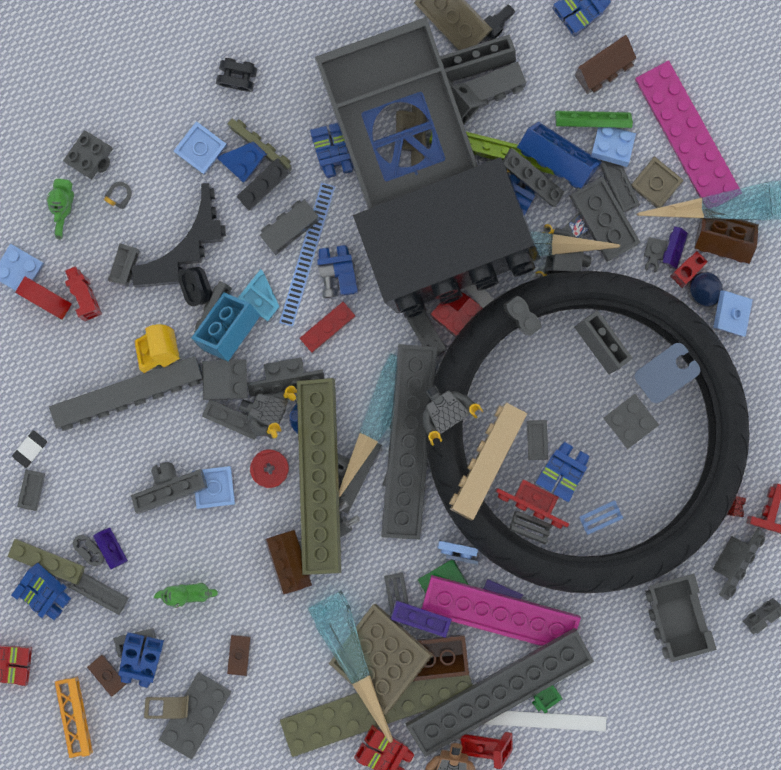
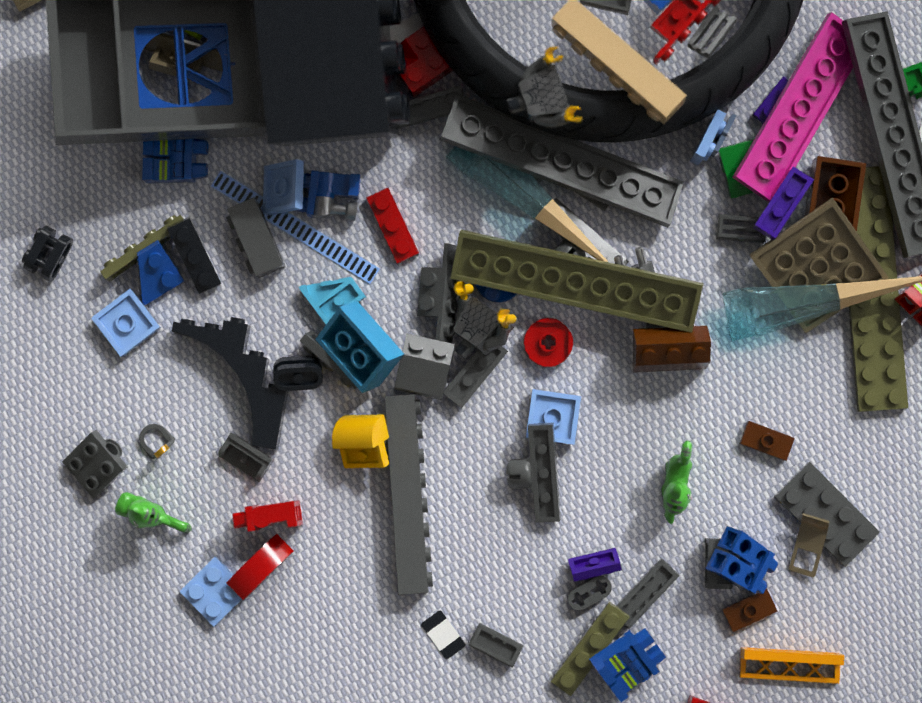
camera: 75 degrees left, 0 degrees up
(332, 236) = (283, 187): none -> light blue plate

